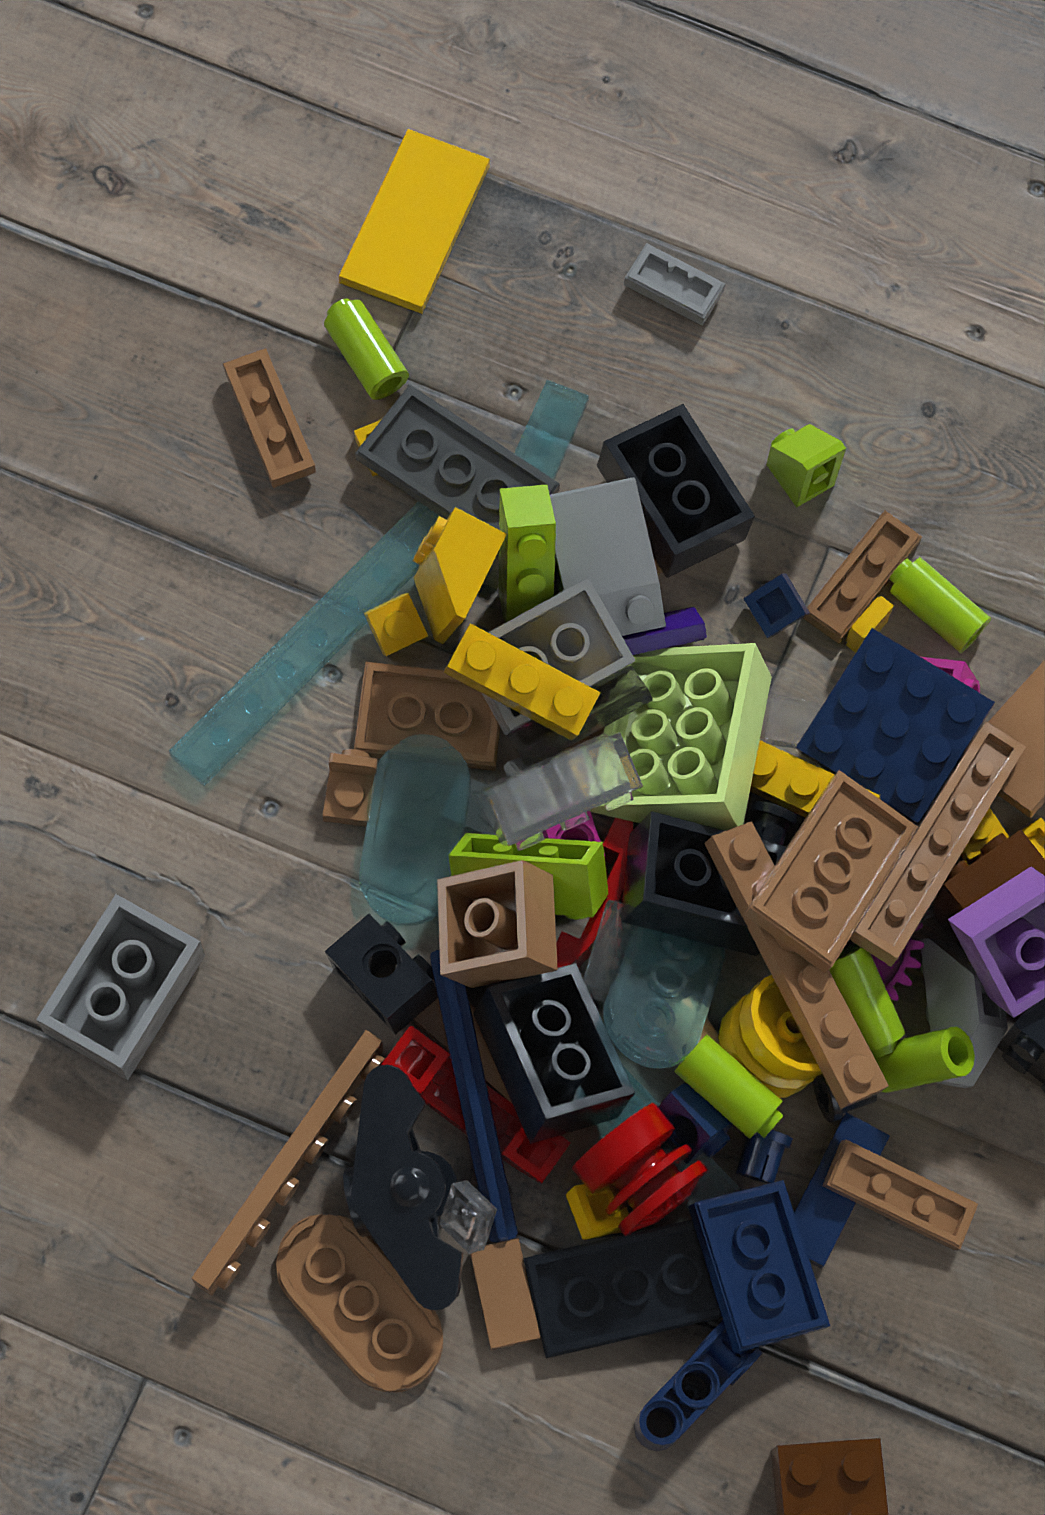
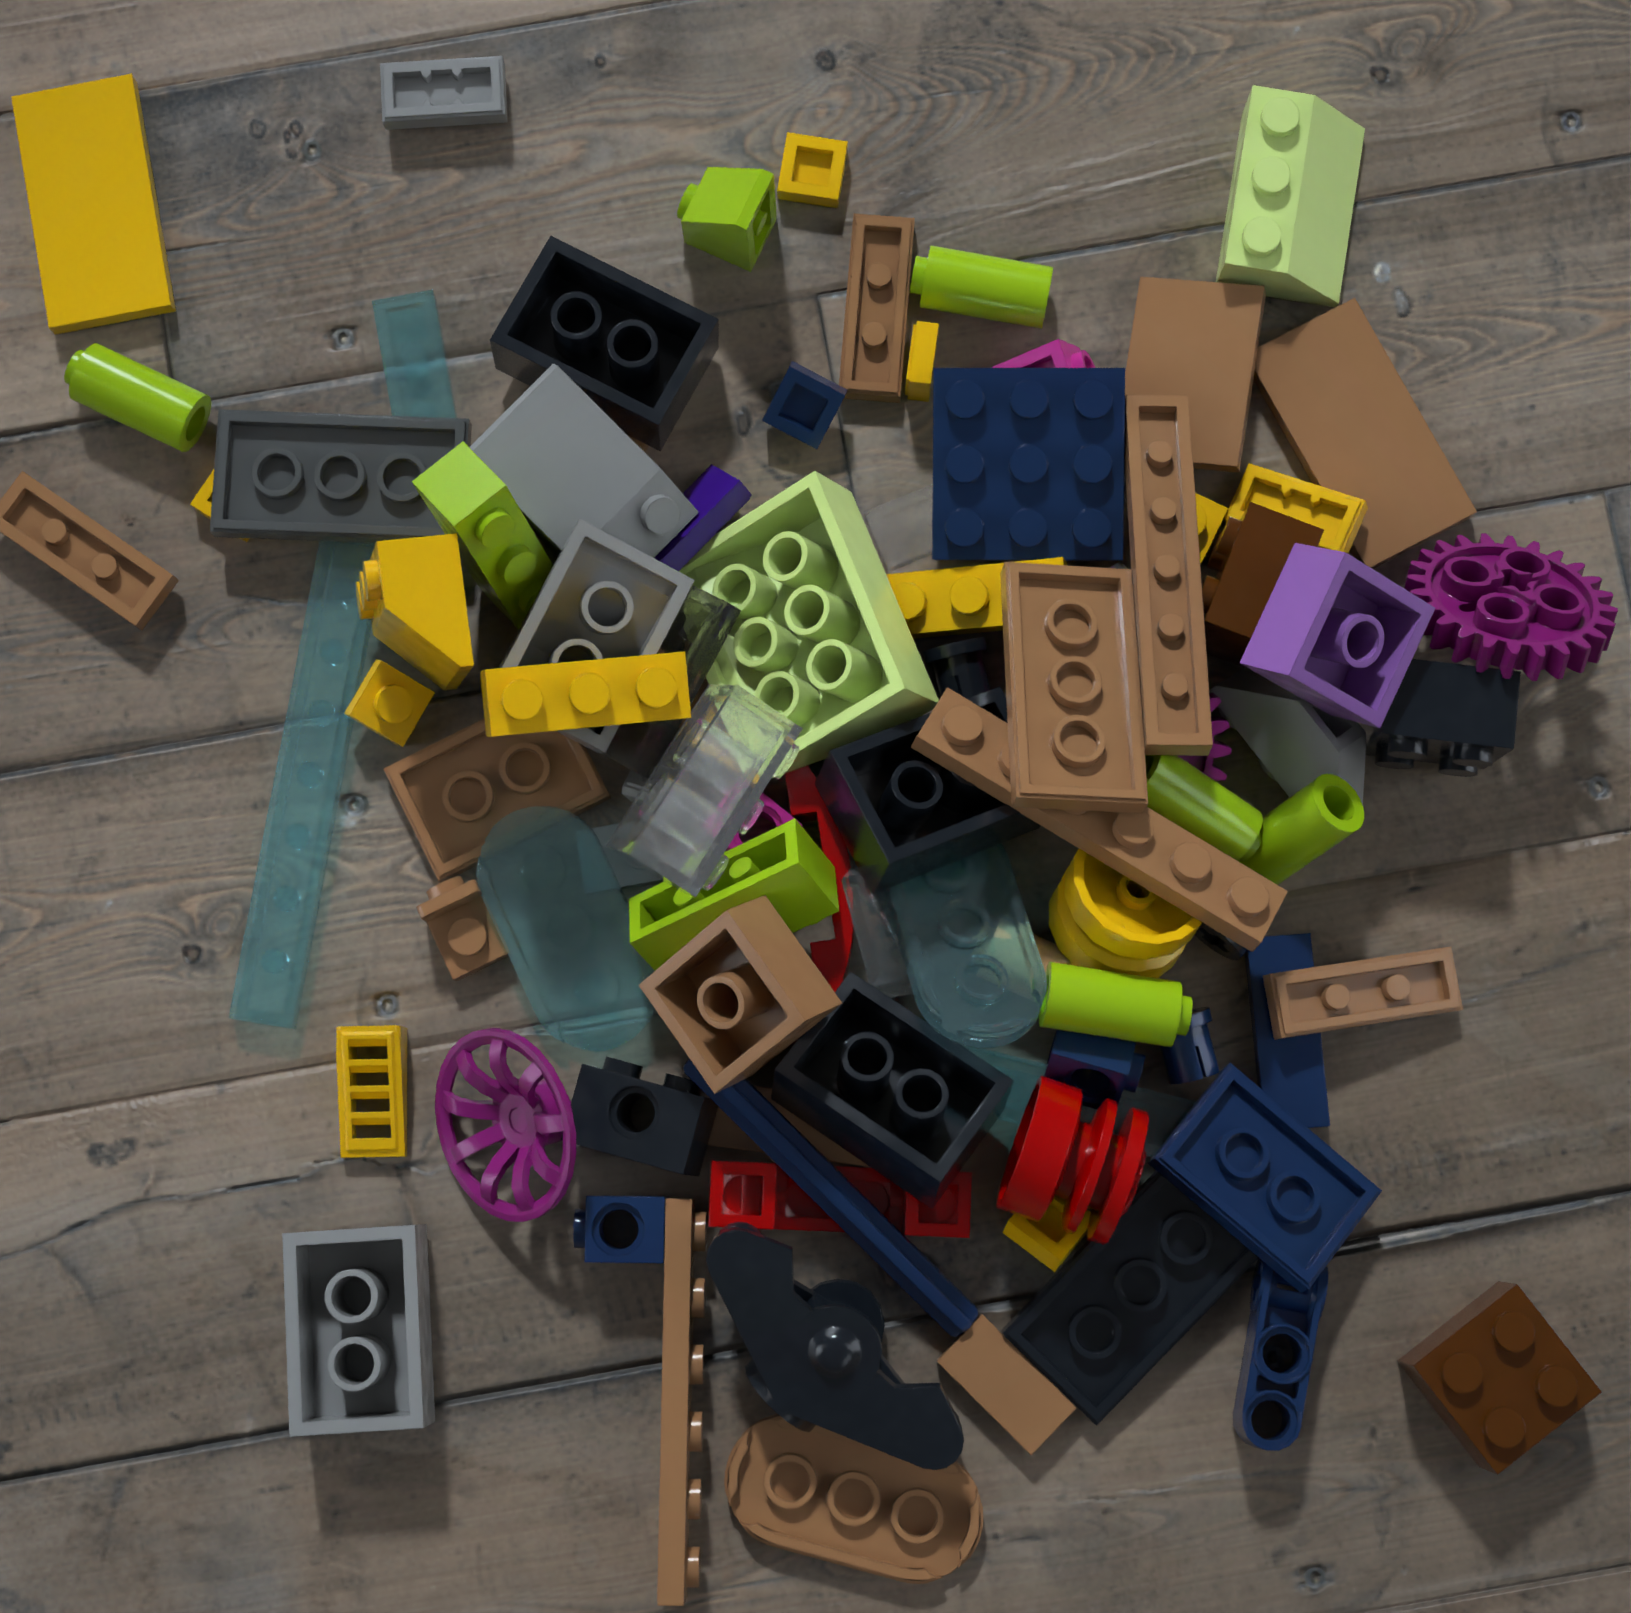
camera: 25 degrees left, 10 degrees up
(213, 842) = (348, 1066): none -> yellow slope
(310, 924) = (524, 1119): none -> magenta wheel
(323, 1013) = (650, 1241): none -> dark blue brick
(467, 1216) = (913, 1330): clear plate -> none
(876, 469) = (812, 170): none -> yellow tile

